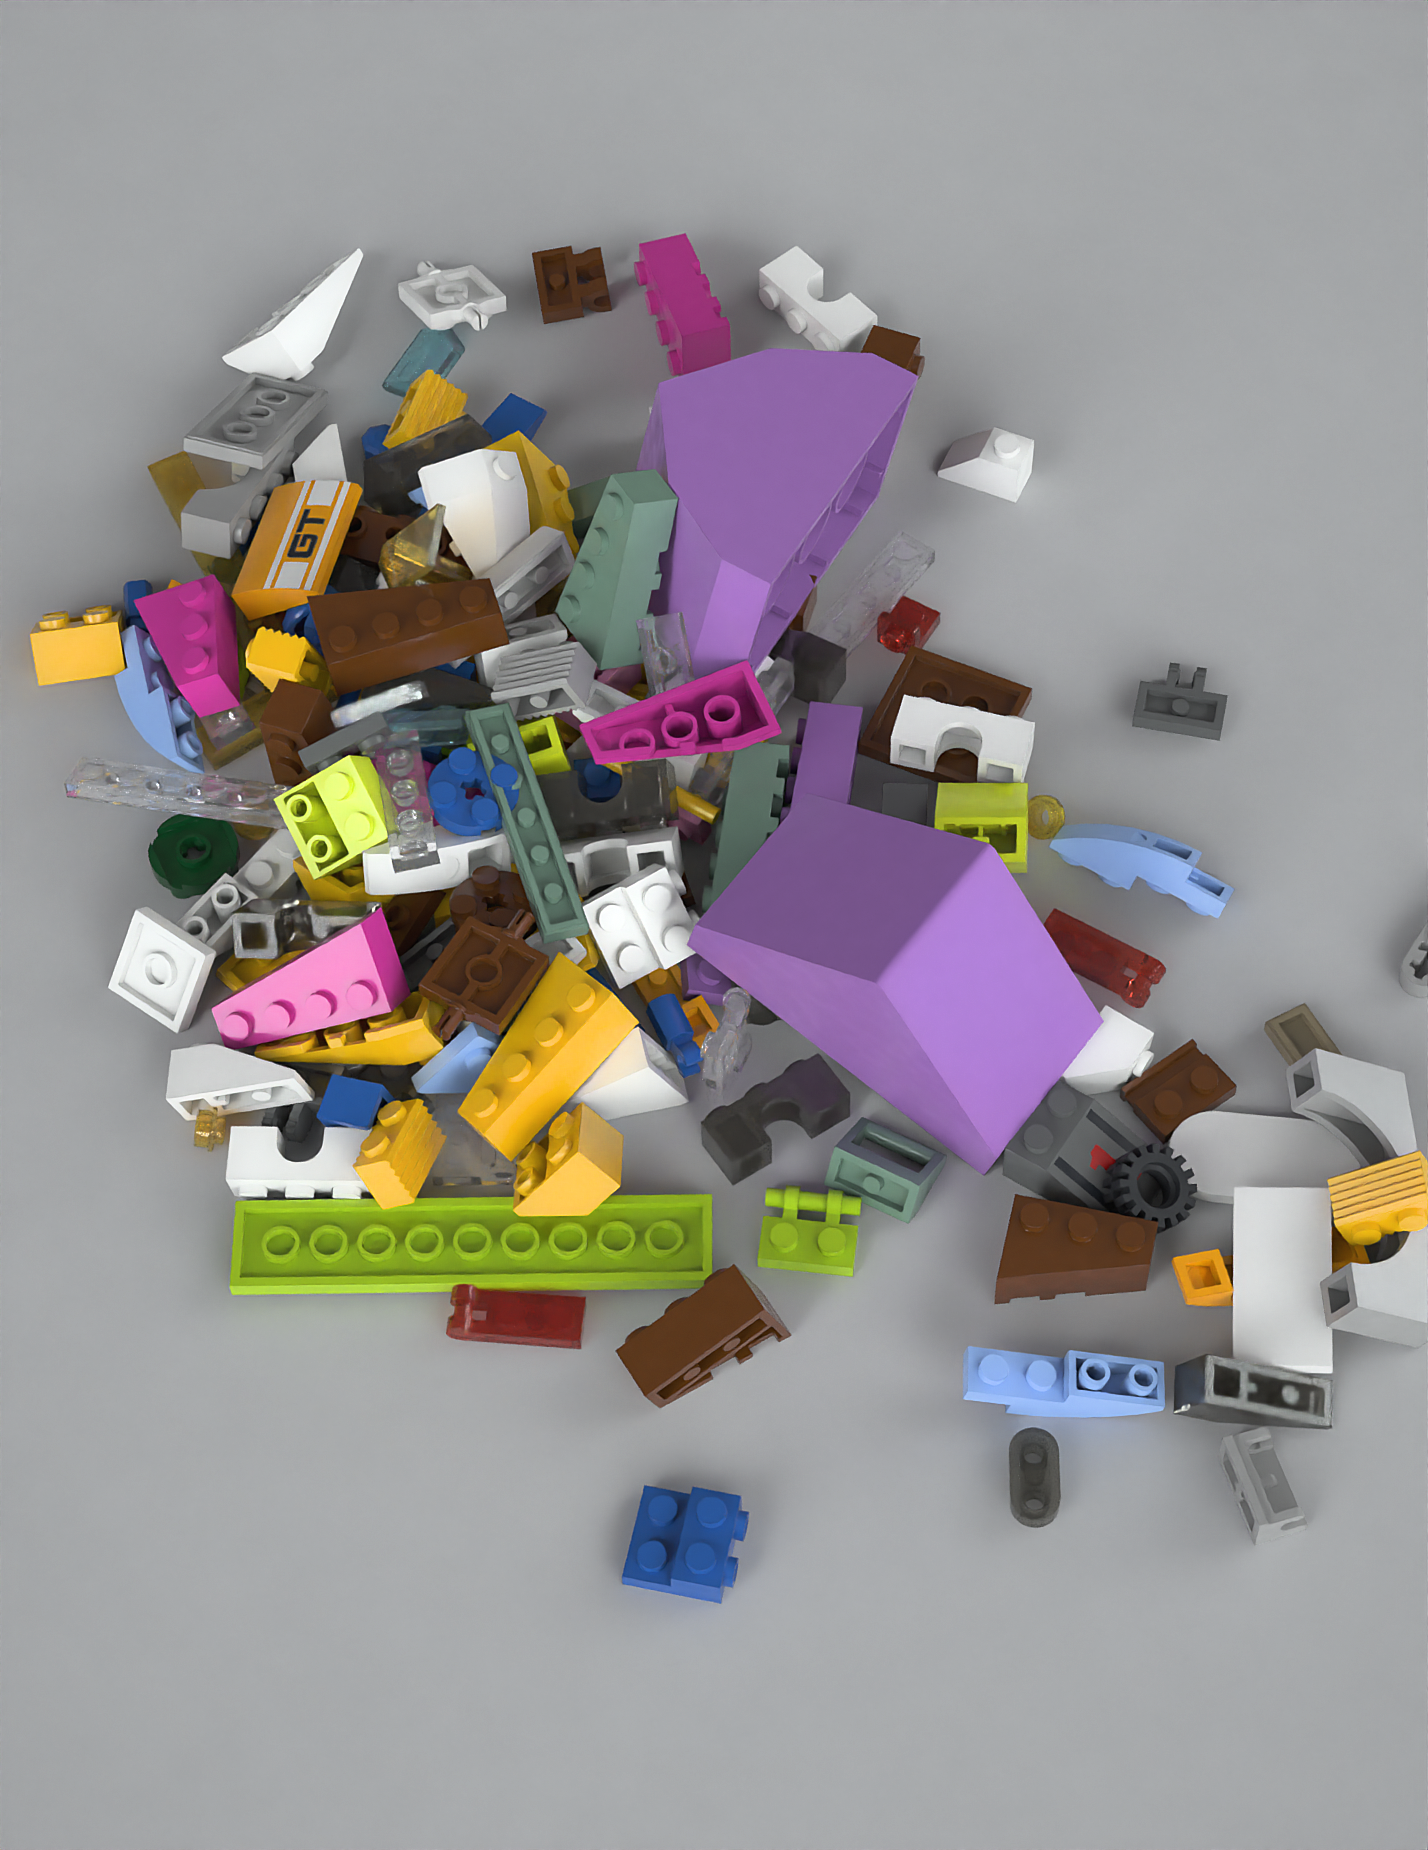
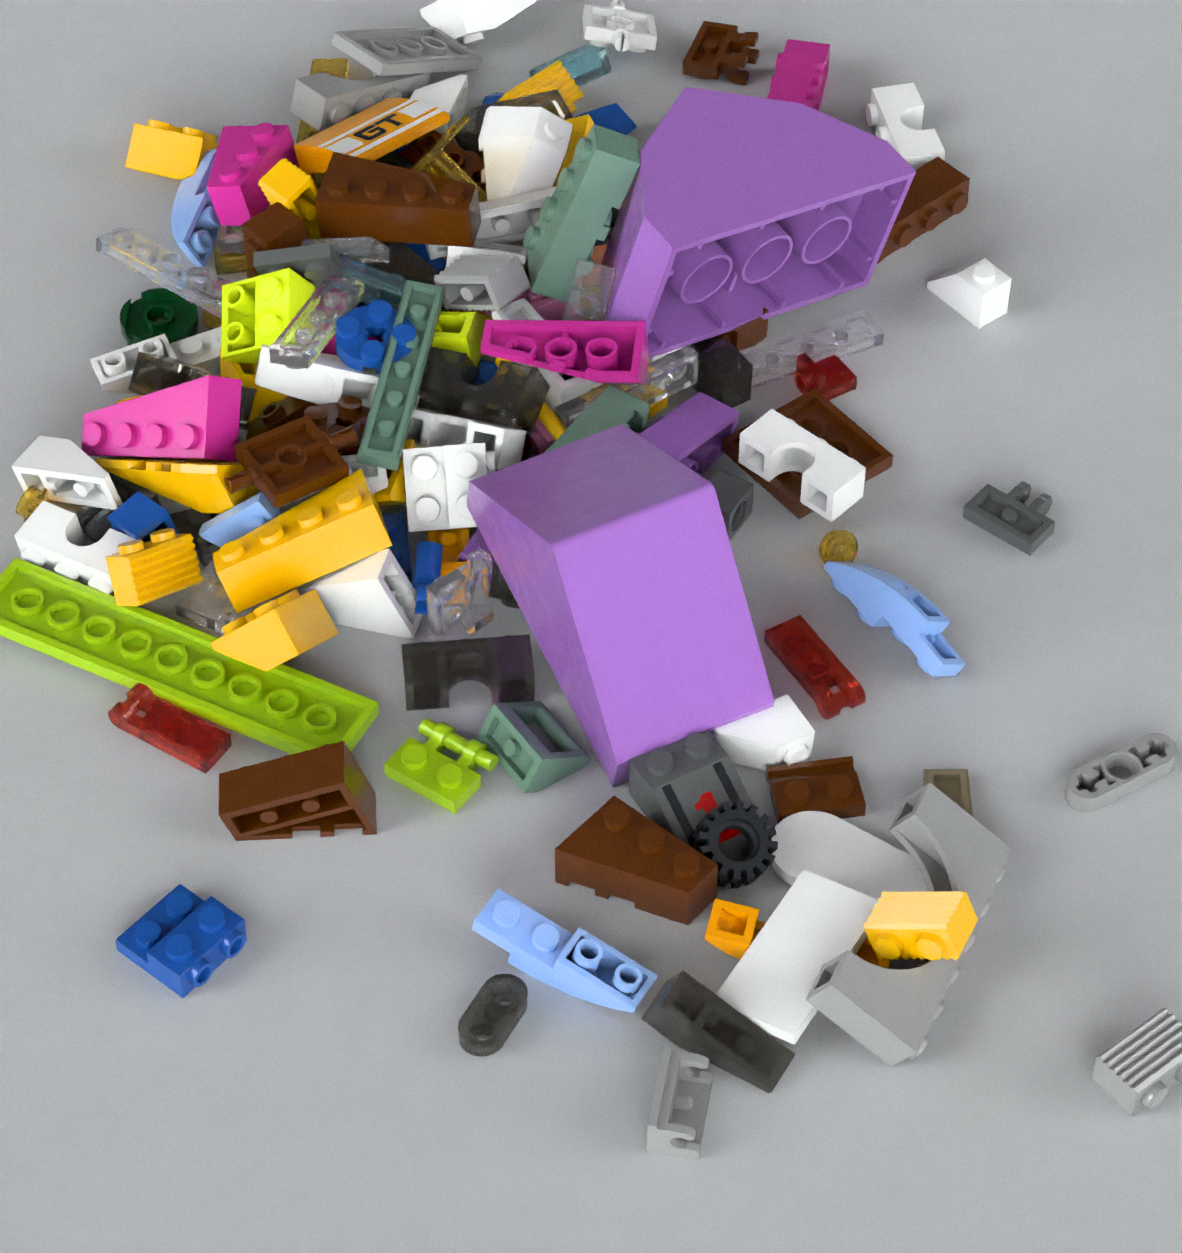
camera: 25 degrees right, 10 degrees down
(162, 969) = (73, 381): white plate -> none
(988, 814) = (778, 534): neon yellow slope -> none

